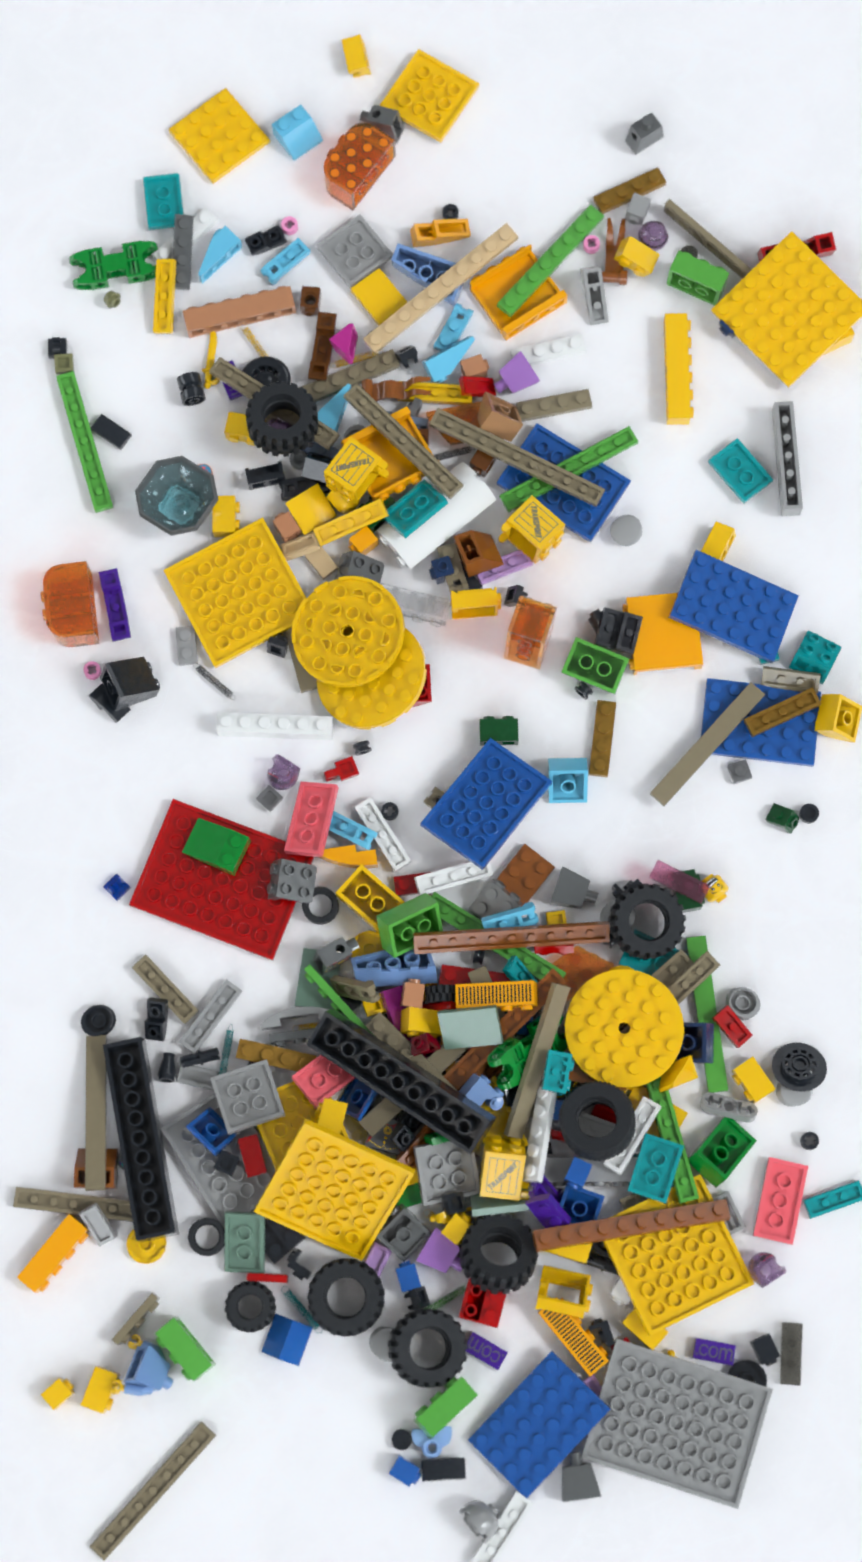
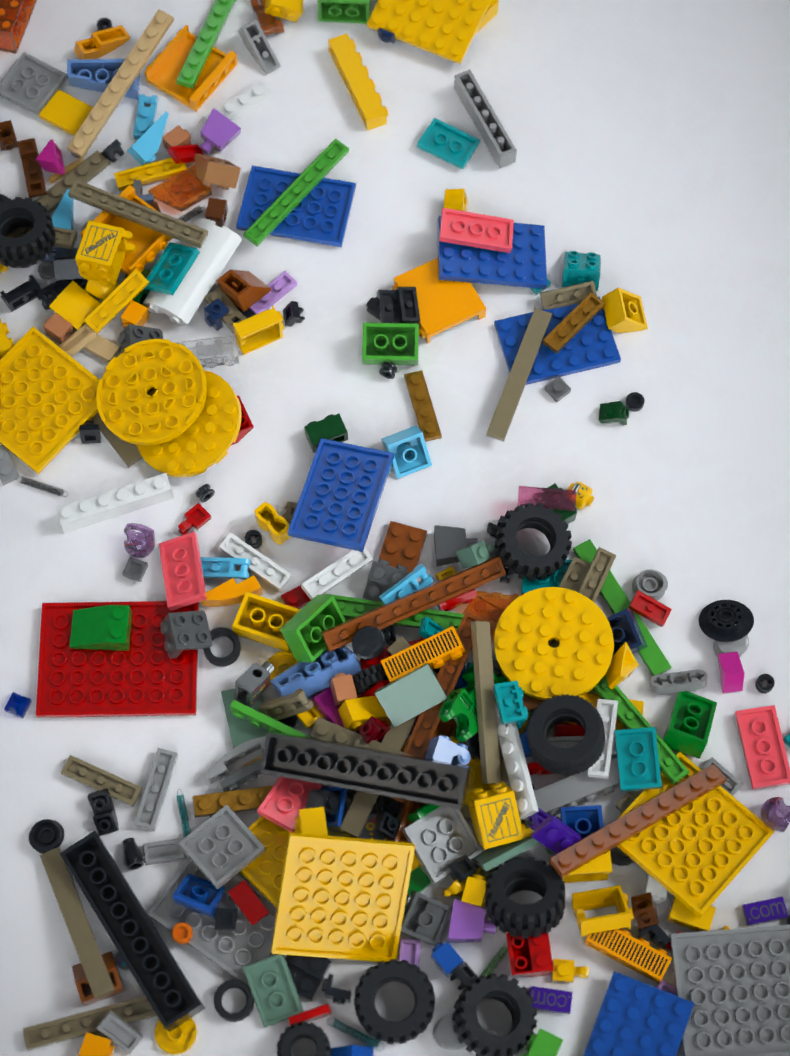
camera: 25 degrees left, 10 degrees down
(184, 1159) = (182, 933): none -> orange tile
(200, 1057) = (160, 831): black axle -> none
(353, 1092) = (324, 799): none -> black brick
(394, 389) = (114, 180): dark orange flag -> none
(410, 800) = (271, 522): none -> yellow brick
(452, 960) = (368, 643): none -> black piece
(510, 1331) = (565, 971): none -> yellow plate
(517, 457) = (246, 195): dark tan plate -> none
(529, 632) = (319, 334): clear orange brick -> none
(533, 530) = (286, 250): yellow container -> none
(554, 405) = (262, 147): dark tan plate -> none
(577, 1173) = (567, 792): blue brick -> none
(588, 911) = (475, 554): none -> sand green brick
(591, 238) = (240, 15): bright pink bush -> none
(601, 1263) = (623, 871): black axle -> none
(602, 1308) = (644, 910): none -> reddish brown brick
(626, 530) = (369, 225): light grey piece -> none
(725, 581) = (476, 230): none -> coral plate
(752, 1080) = (689, 648): yellow brick -> none
(781, 1117) = (731, 672): none -> dark pink slope

